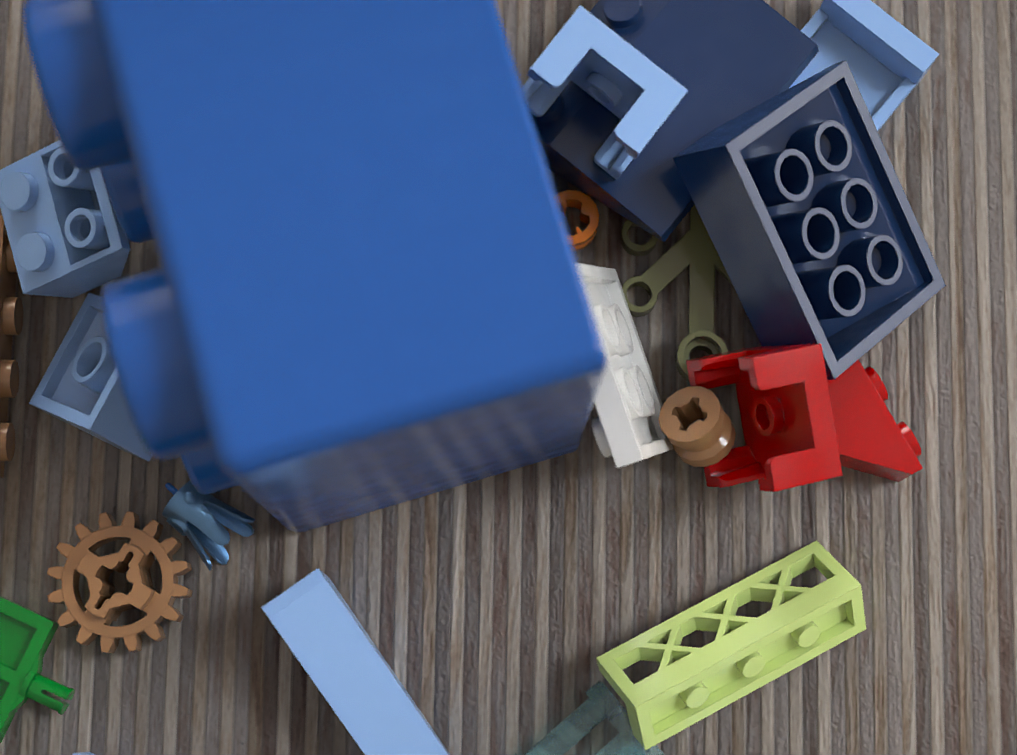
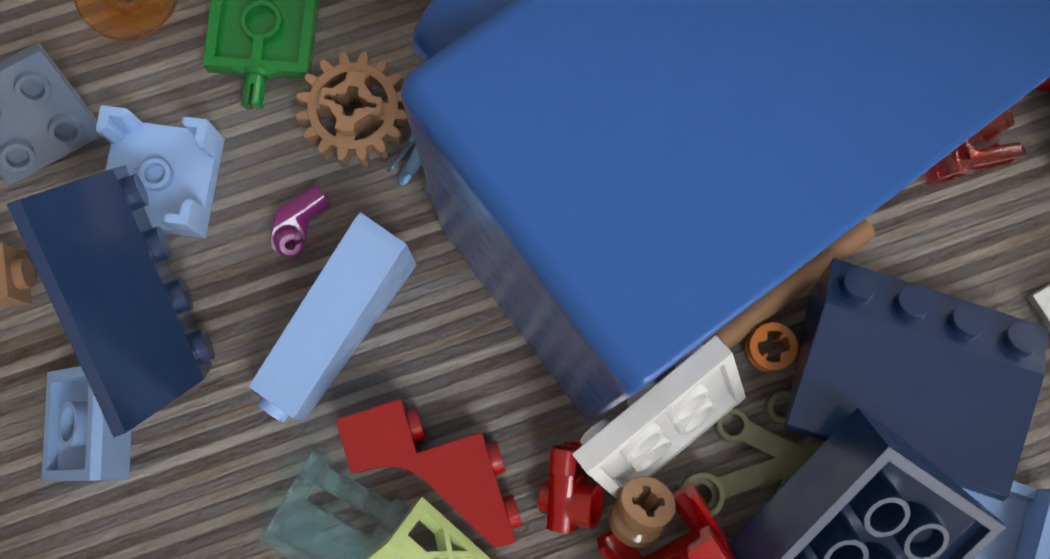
camera: 70 degrees right, 0 degrees up
(223, 702) = (292, 219): none -> magenta arm
(581, 608) = (458, 470): none -> red arch
(613, 76) = (910, 326): light blue panel -> none
(652, 500) = (568, 496): none -> red plate

